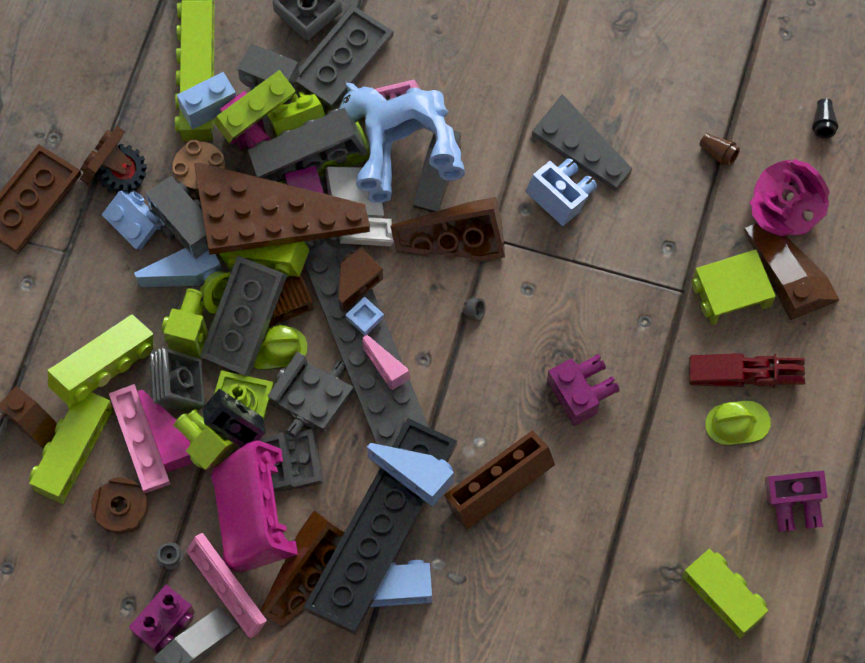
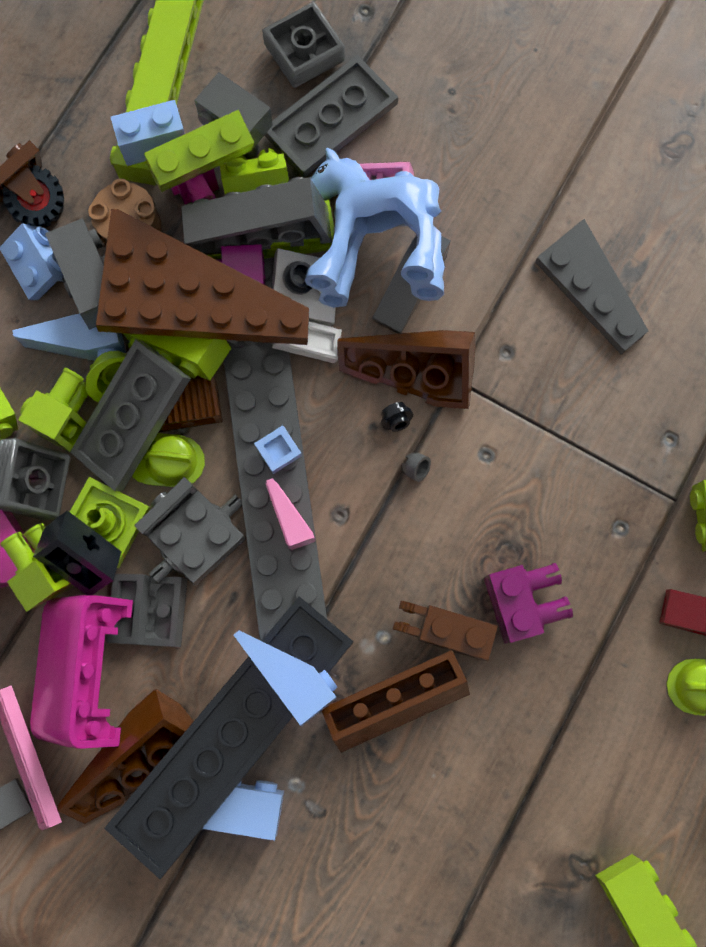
camera: 10 degrees right, 10 degrees up
(348, 178) = (296, 268): none -> black plate
(357, 277) = (279, 398): reddish brown slope -> none
(450, 274) = (396, 417): none -> black plate
(524, 417) = (450, 631): none -> reddish brown hinge
(557, 192) = (551, 341): light blue brick -> none

